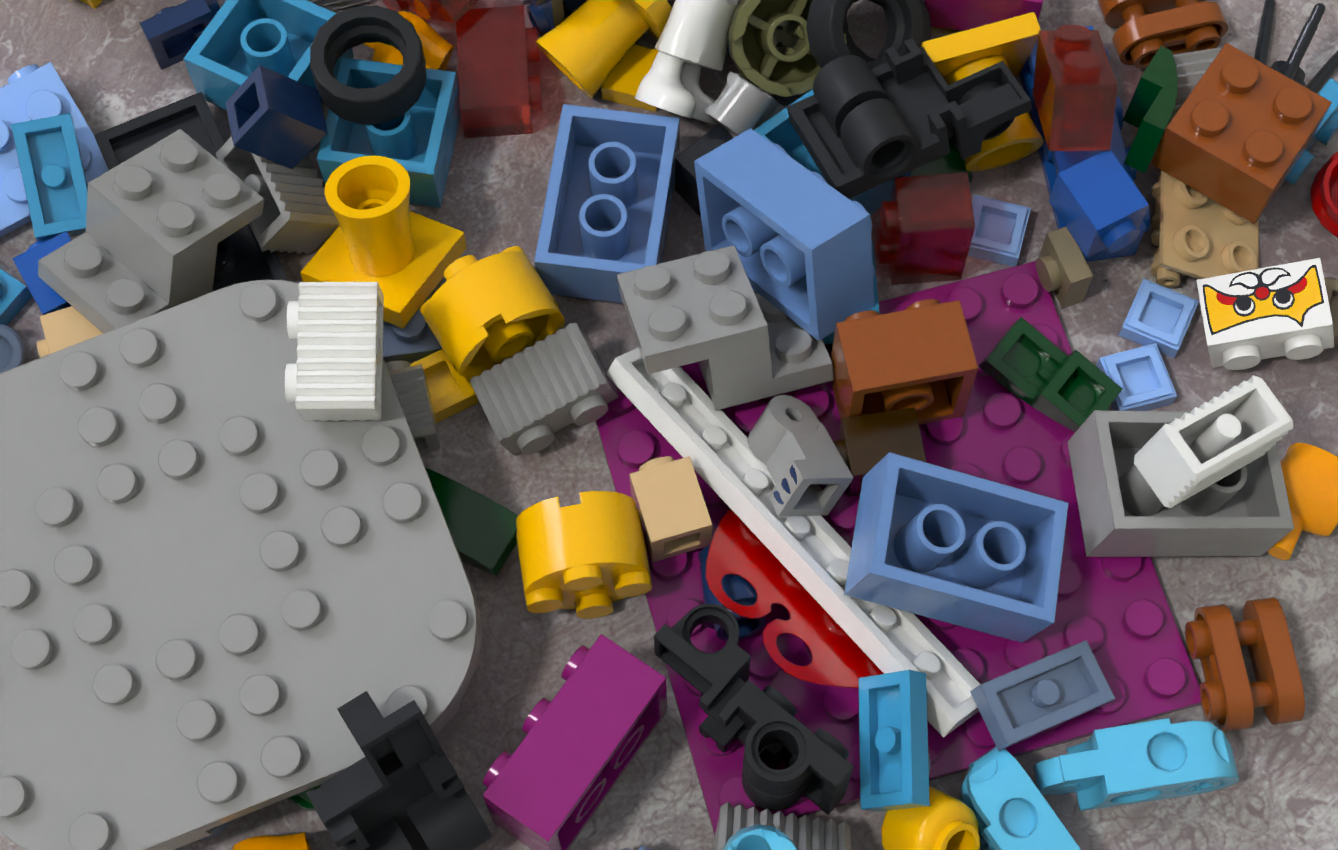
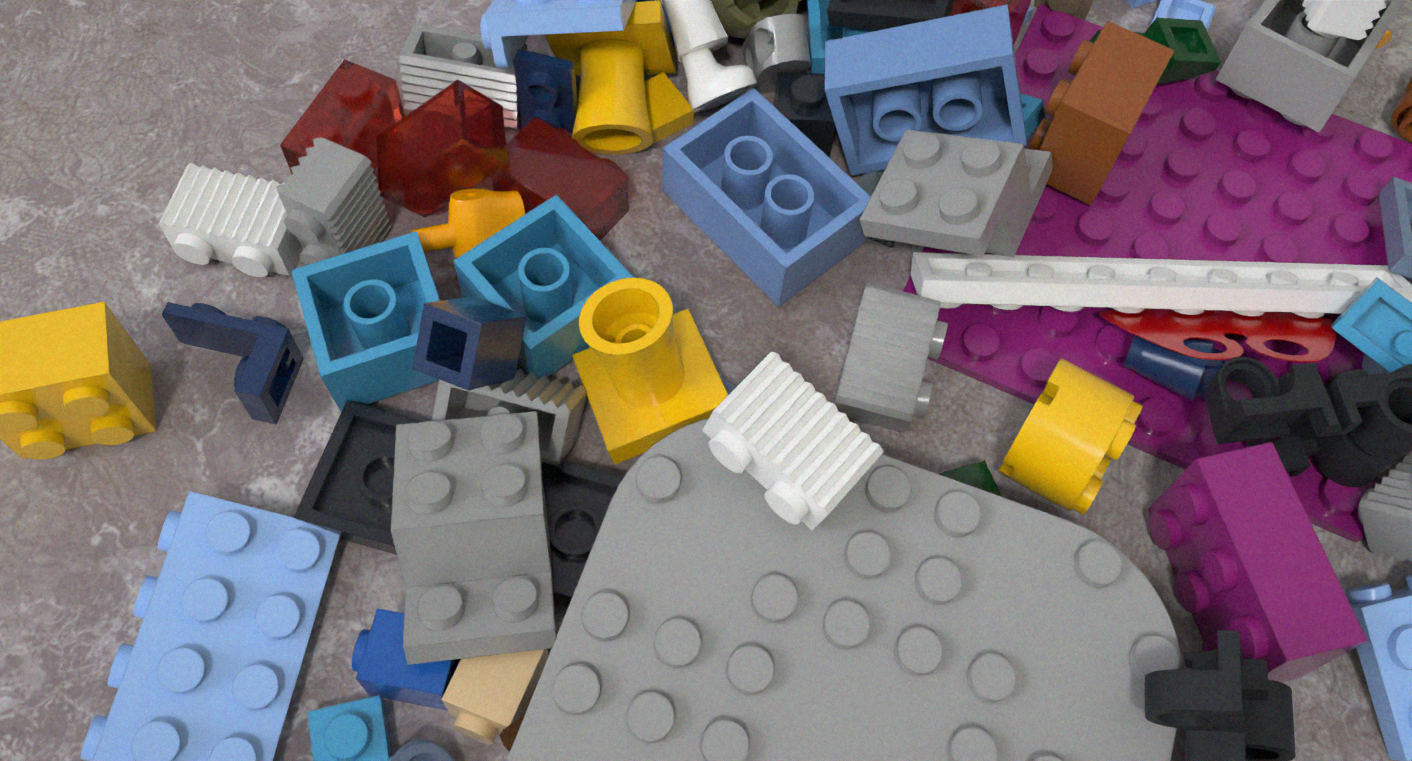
camera: 55 degrees left, 5 degrees down
(52, 175) = (310, 577): dark azure plate -> none
(362, 26) = (489, 197): black tyre -> none
(490, 310) = (798, 322): yellow brick -> none
(671, 507) = (1077, 334): tan brick -> none
(798, 458) = (1106, 231): light grey leg -> none
(870, 437) = (1139, 183): dark brown brick -> none
(957, 548) = (1278, 187): medium blue brick -> none

